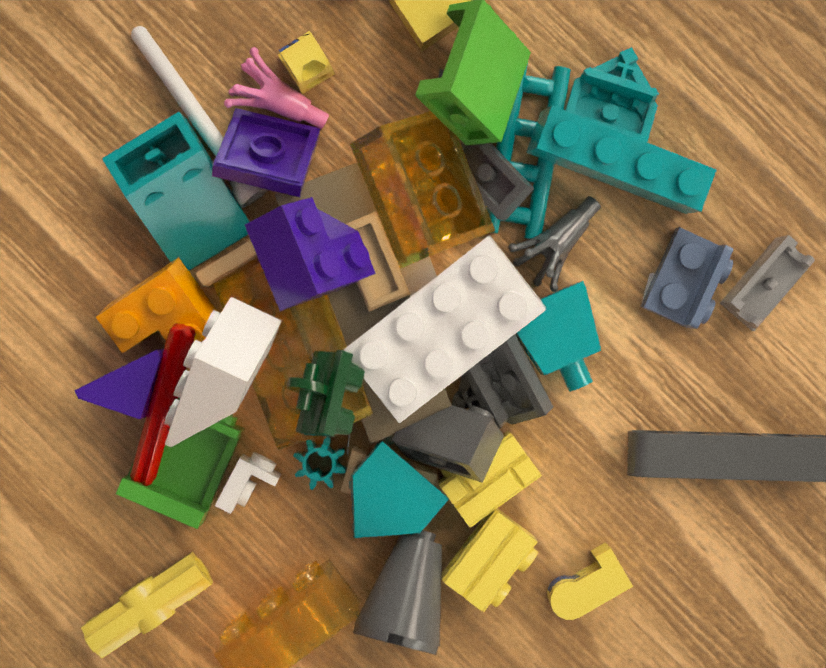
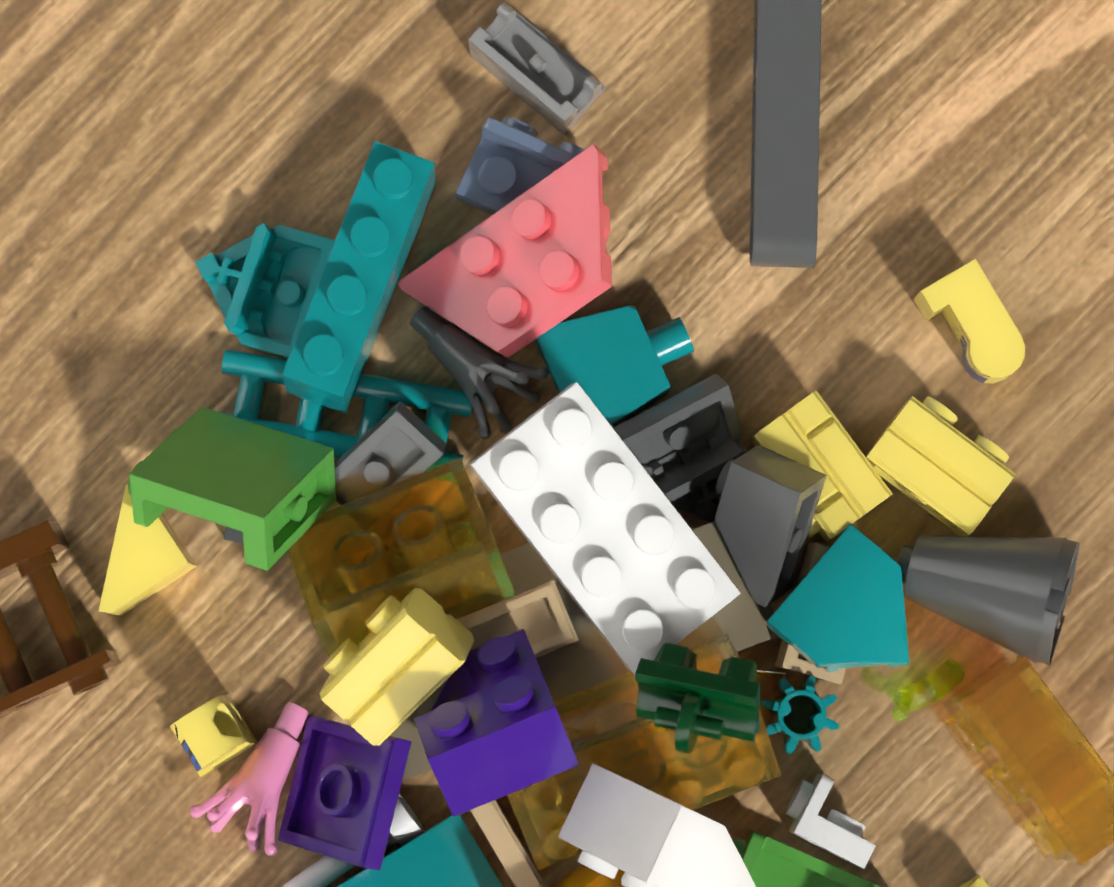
camera: 90 degrees left, 5 degrees down
(336, 549) = (924, 693): none -> clear neon green piece
(349, 185) = (396, 665): none -> light yellow brick
(632, 276) = (525, 261): none -> coral wing

